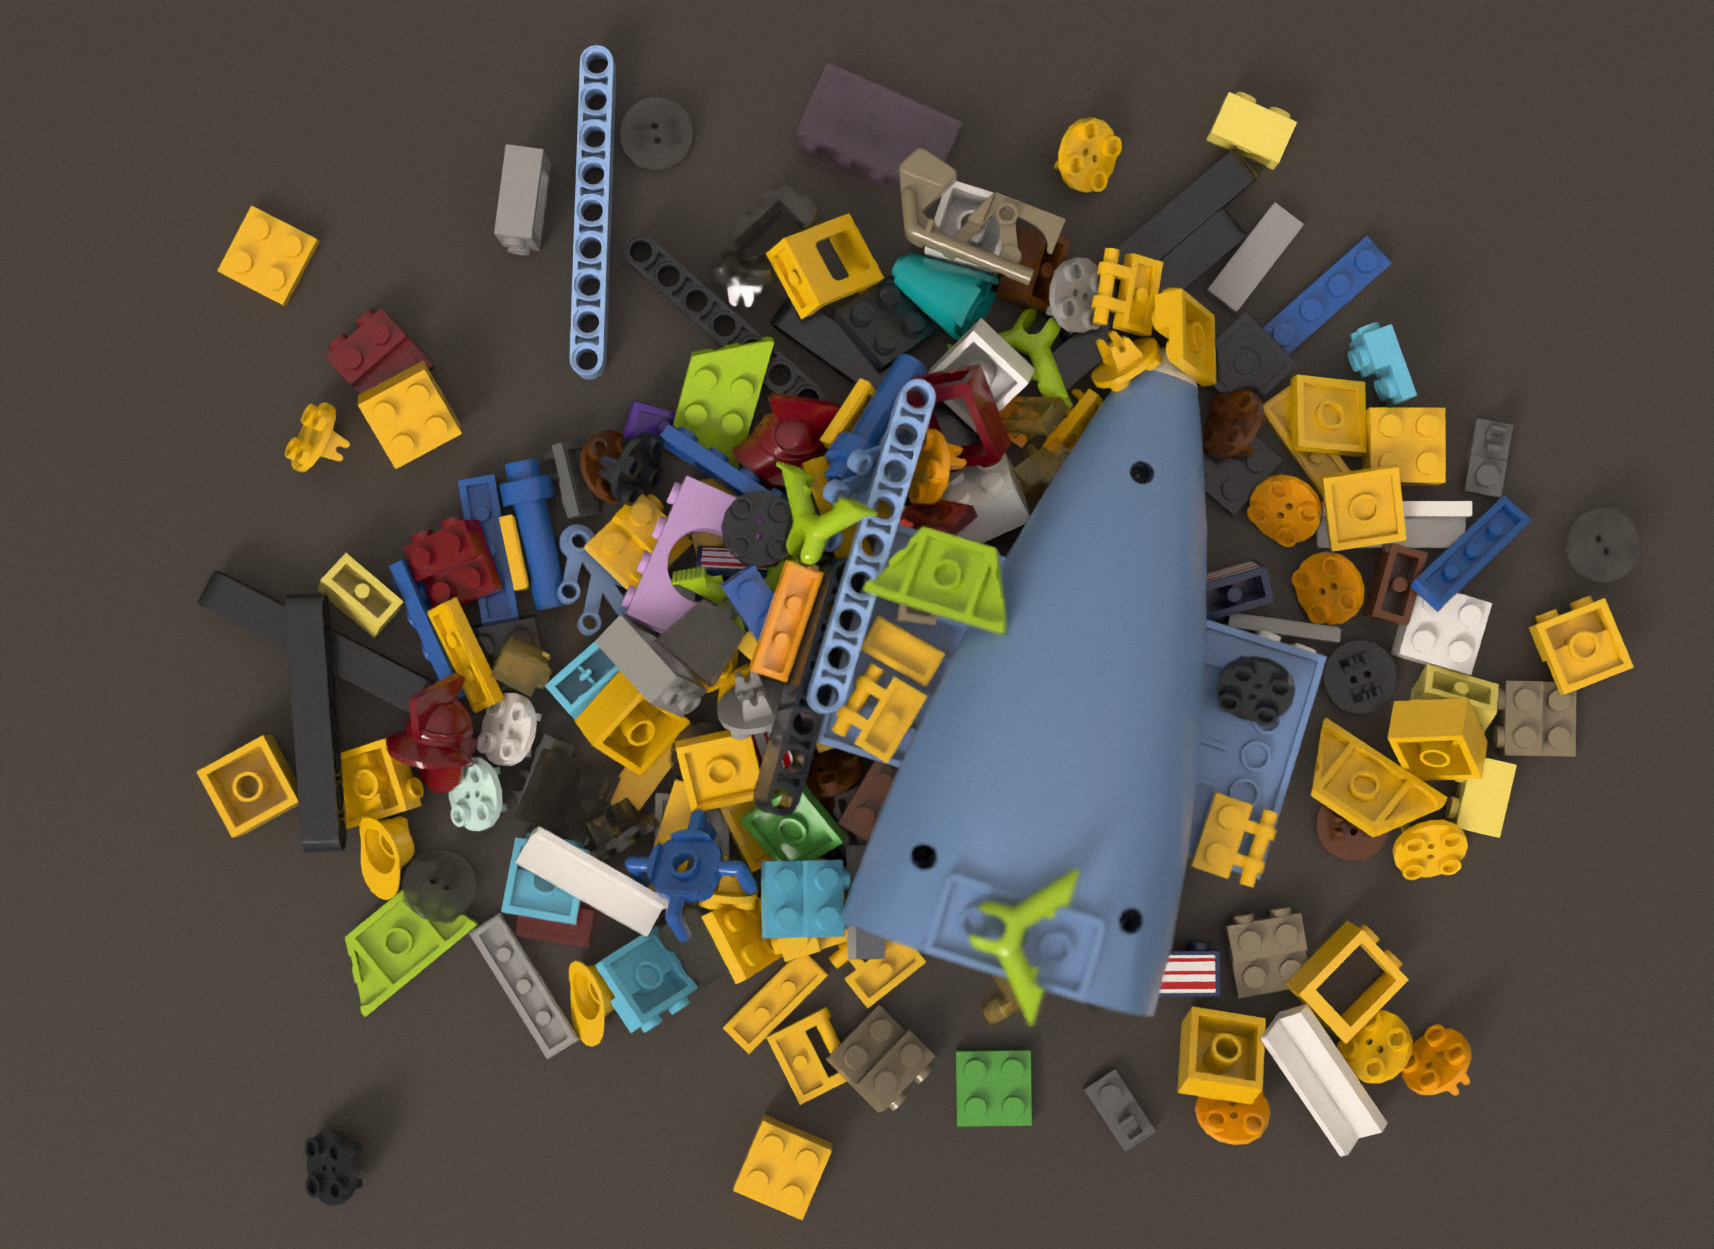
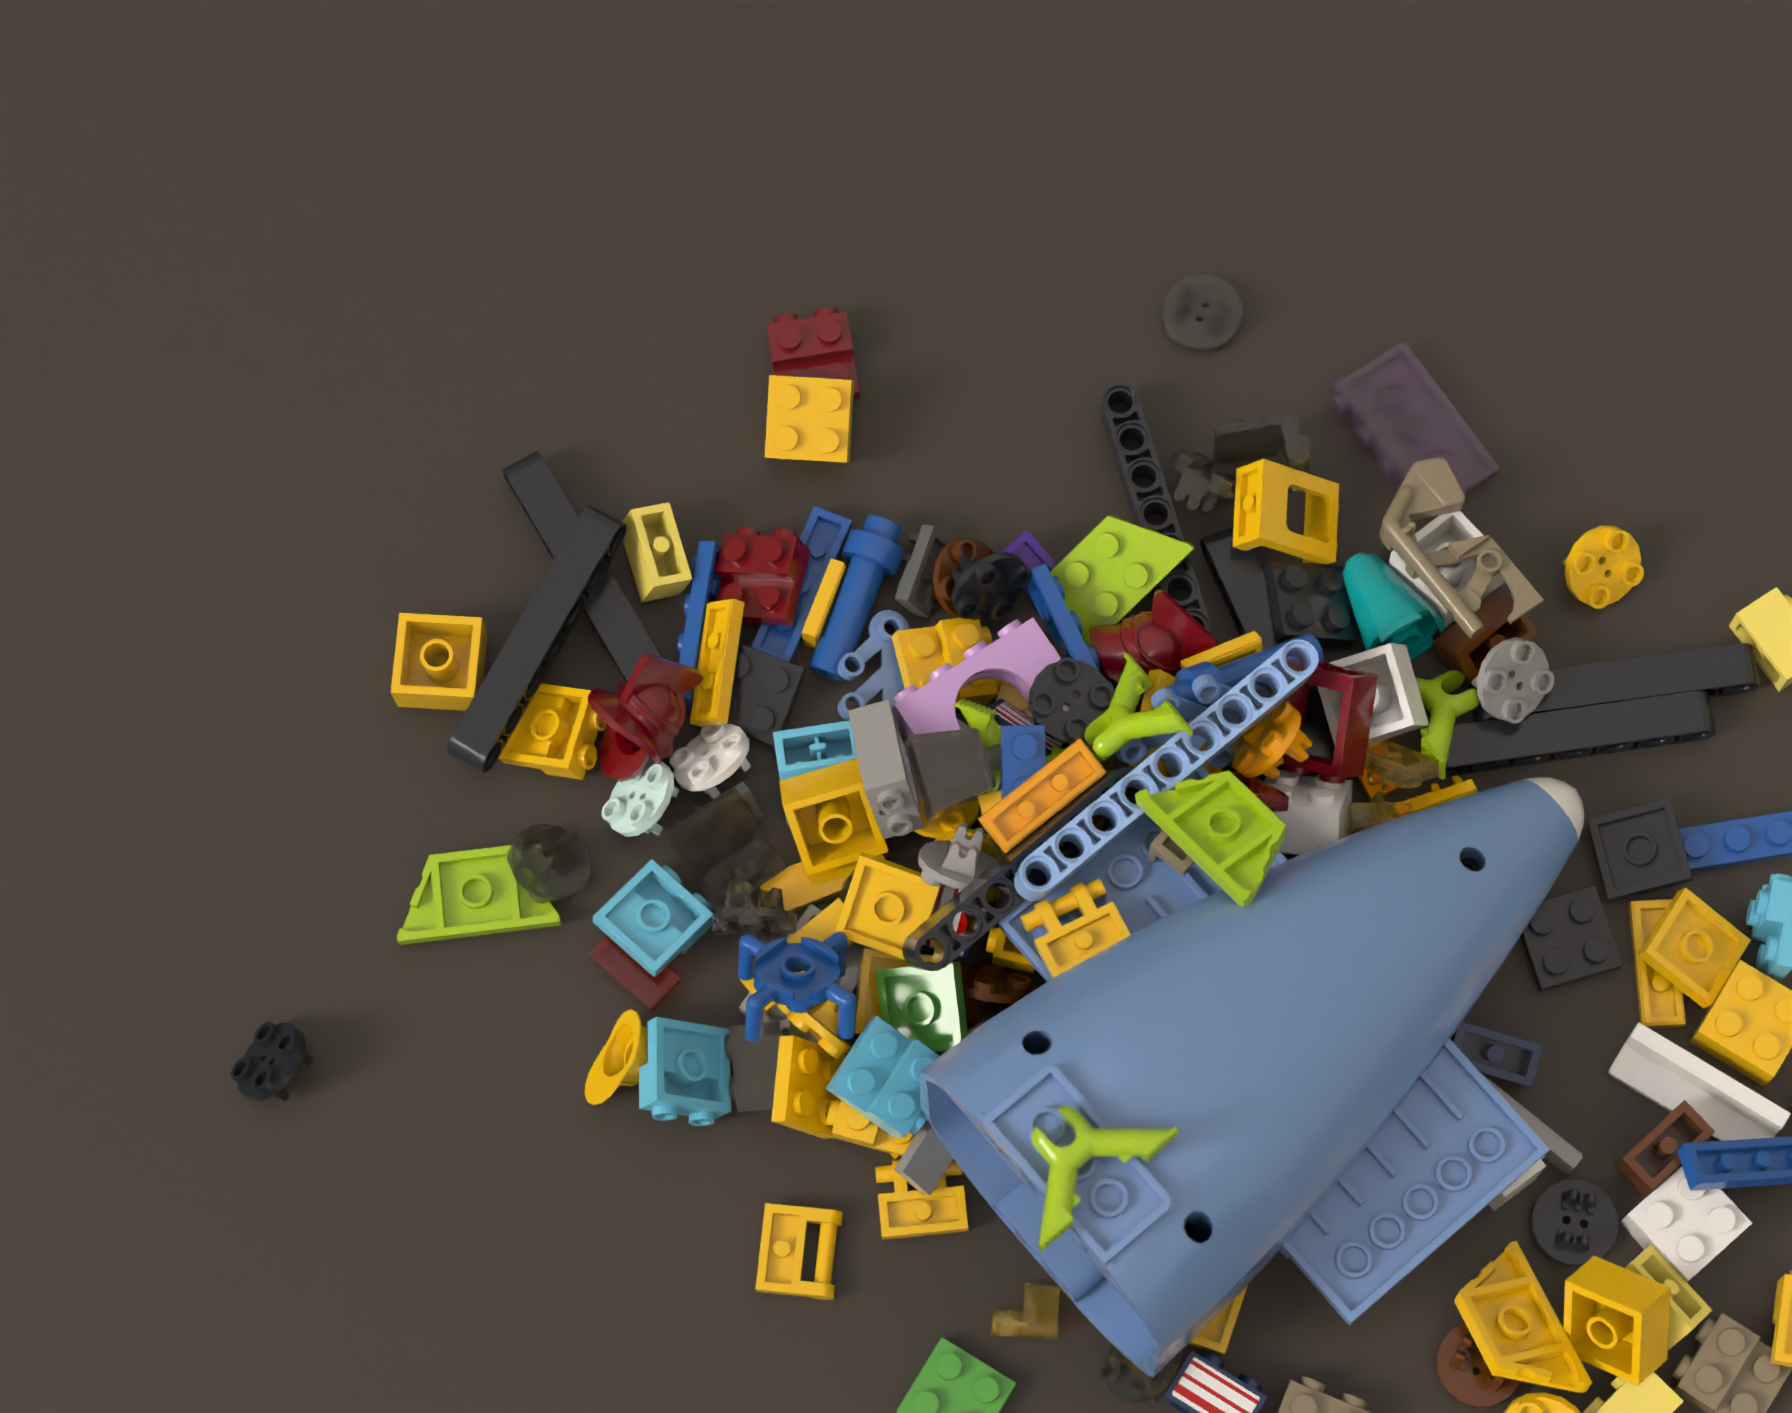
camera: 40 degrees right, 15 degrees down
(268, 256) = (773, 211): yellow plate -> none
(315, 438) = (710, 391): yellow plate -> none
(384, 852) = (521, 799): yellow piece -> none
(522, 199) = (1040, 292): light grey window -> none
(522, 666) = (763, 702): clear yellow brick -> none
(524, 985) = (565, 1011): light grey tile -> none
(587, 195) = (1092, 363): light blue beam -> none
(591, 881) = (697, 938): white panel -> none
(774, 1002) = (796, 1177): yellow tile -> none
(783, 1167) = (699, 1338): yellow brick -> none
(881, 1060) = (863, 1296): dark tan plate -> none
(902, 651) = (1134, 885): yellow tile -> none
(1124, 360) = (1521, 764): yellow plate -> none
(1136, 295) = (1572, 714): yellow plate -> none
(1189, 333) = (1600, 781): yellow plate -> none
(1222, 836) = (1338, 1255): yellow plate -> none
(1233, 424) = (1592, 893): reddish brown plate -> none
(1254, 257) = (1710, 760): light grey tile -> none
(1270, 697) = (1472, 1143): black plate -> none
(1298, 521) = (1605, 1028): light orange plate -> none
(1336, 604) = (1595, 1092): light orange plate -> none
(1363, 507) = (1675, 1048): yellow plate -> none

